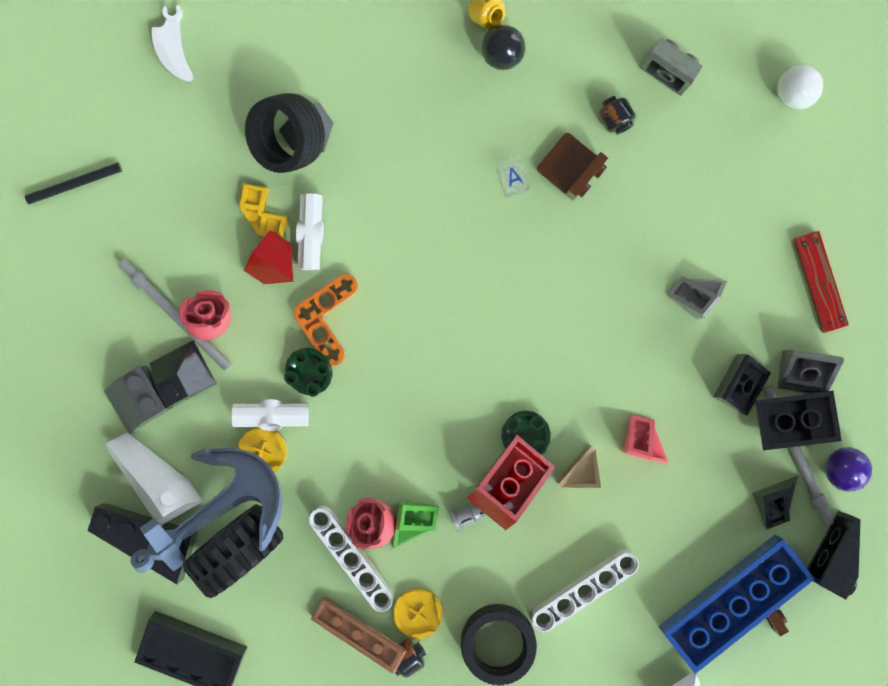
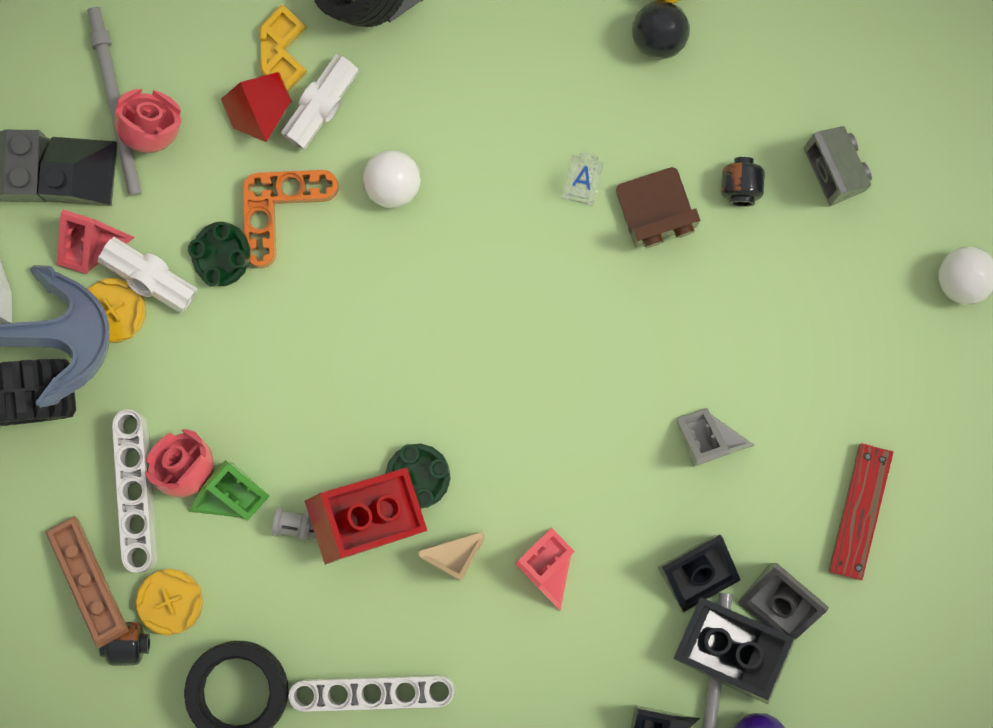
camera: 30 degrees right, 5 degrees down
(215, 419) = (83, 240): none -> coral slope
(389, 254) = (391, 179): none -> white piece

